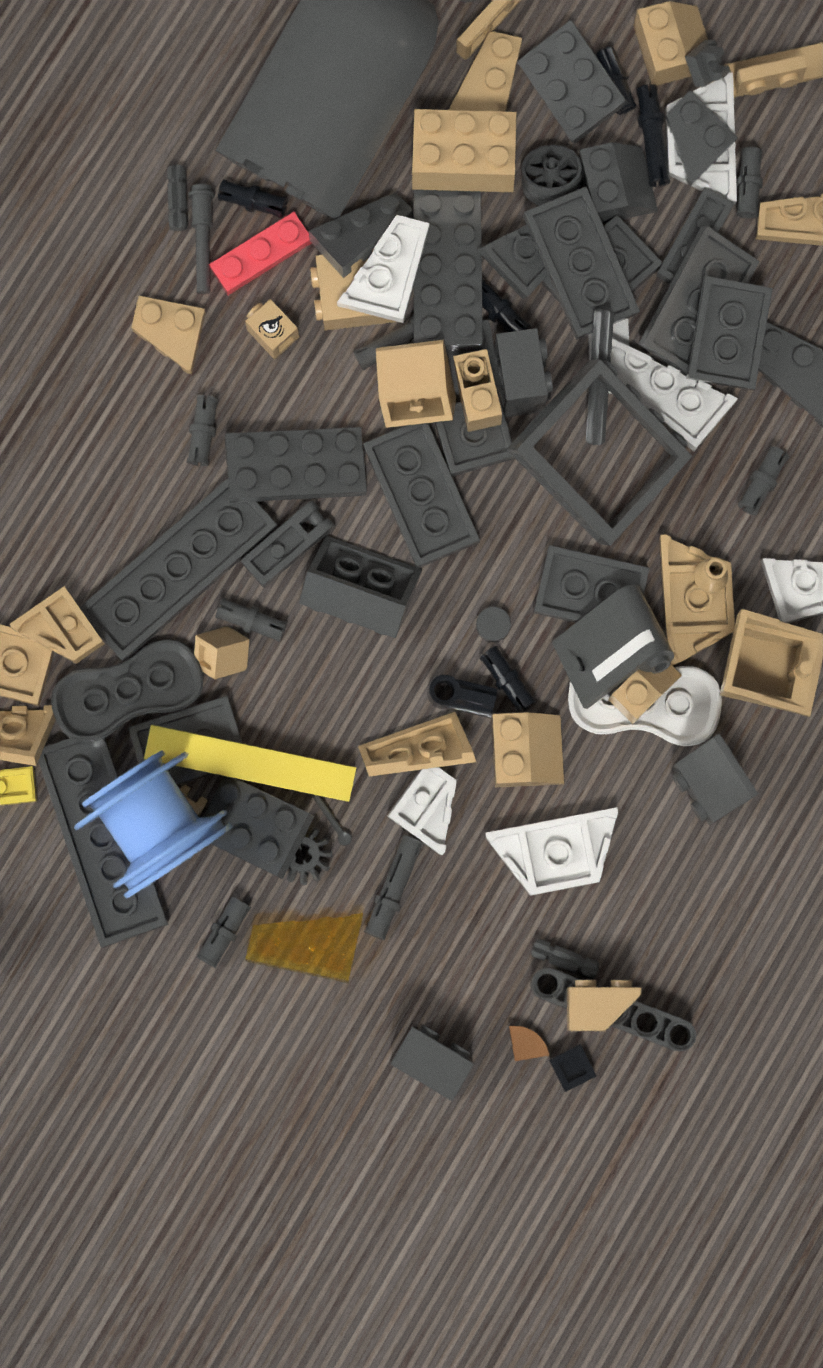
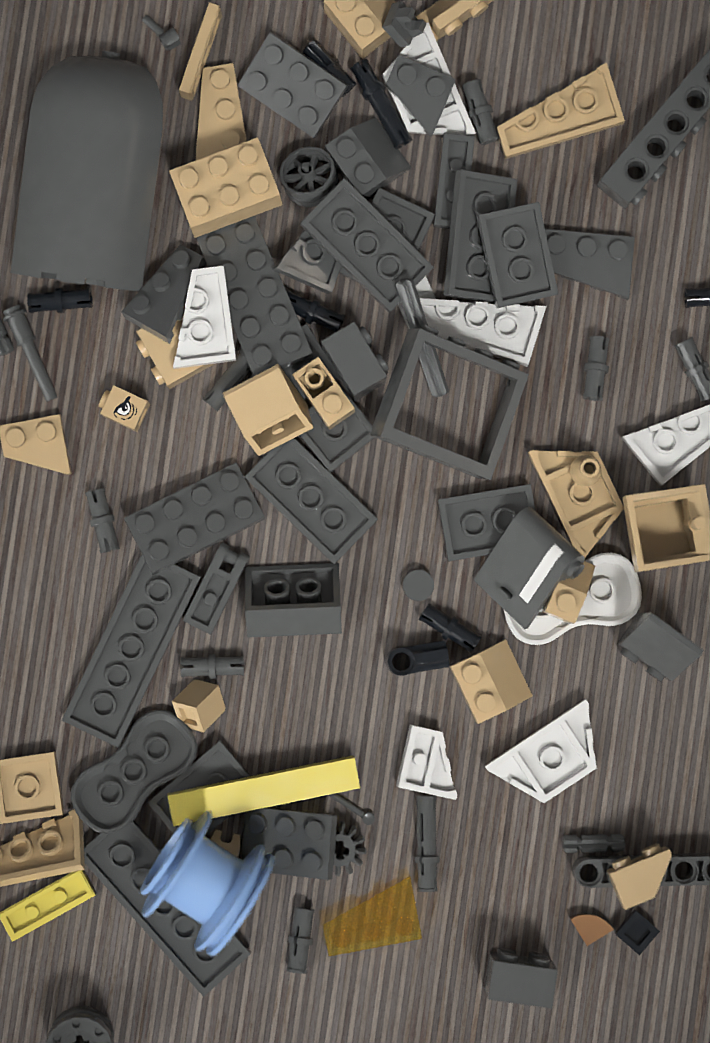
camera: 25 degrees left, 5 degrees up
(59, 627) = (54, 741): tan wing -> none
(260, 253) = (87, 345): coral plate -> none
(419, 747) = (399, 718): tan wing -> none

